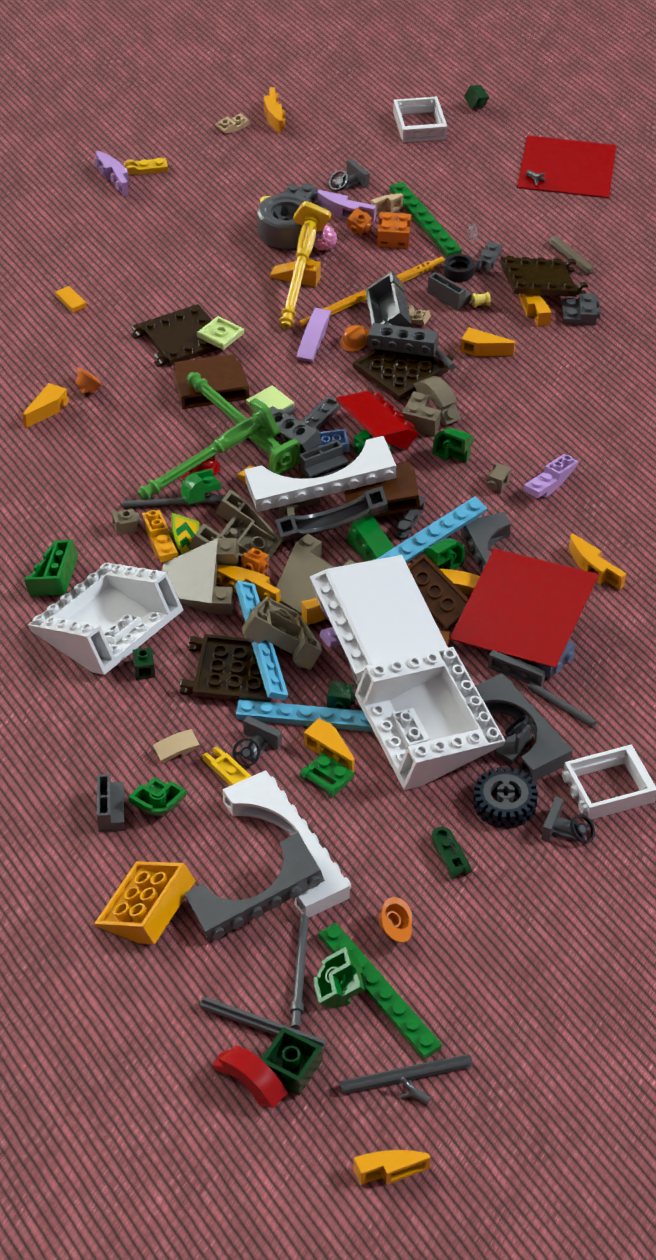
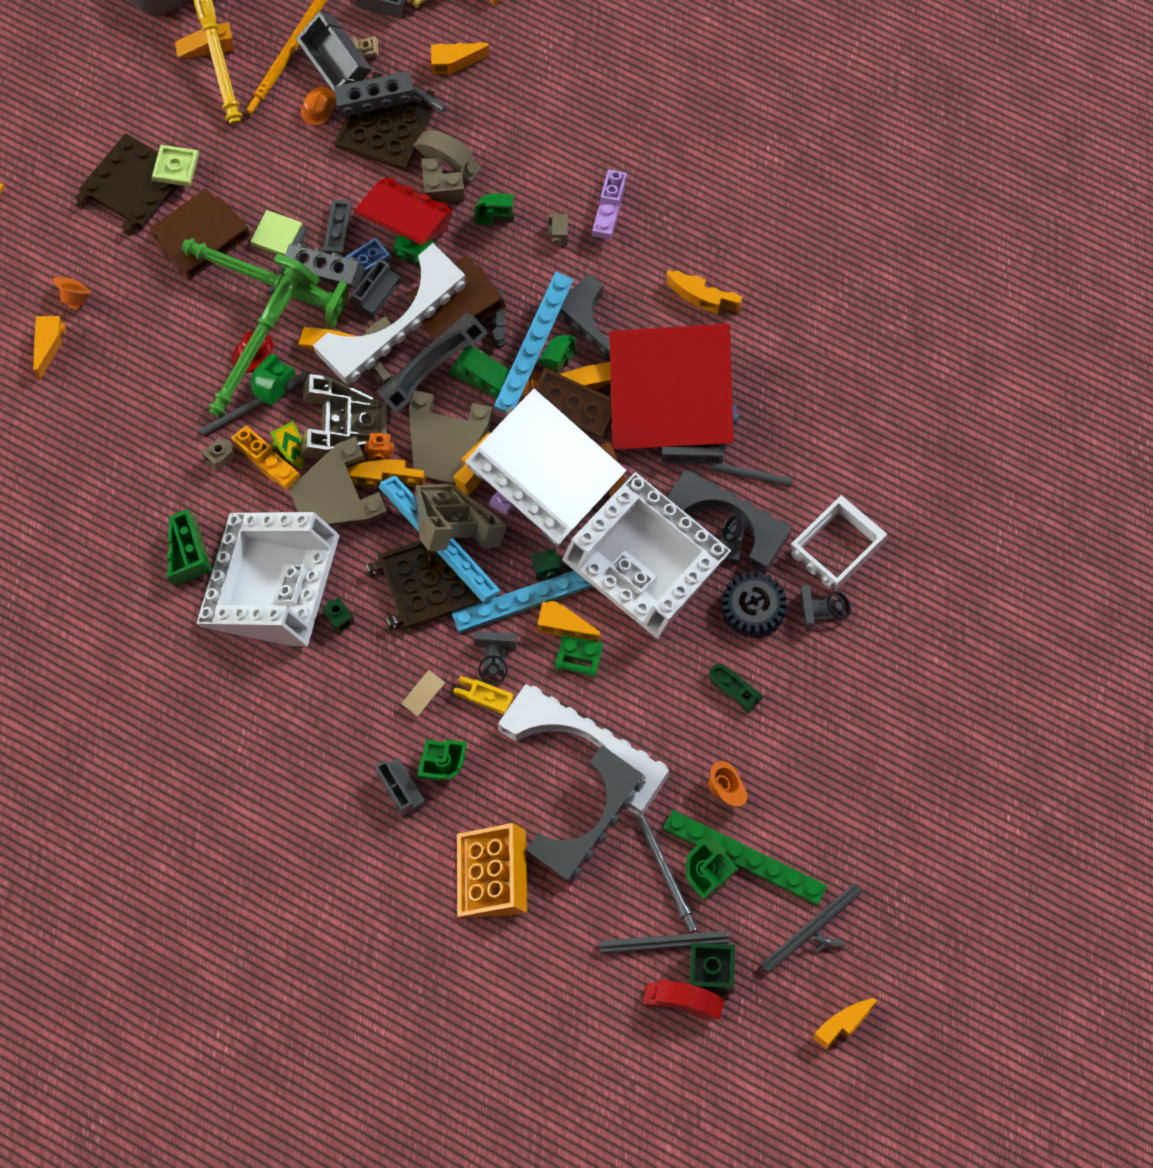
camera: 25 degrees left, 20 degrees up
(313, 335) = (272, 122): lavender slope -> none

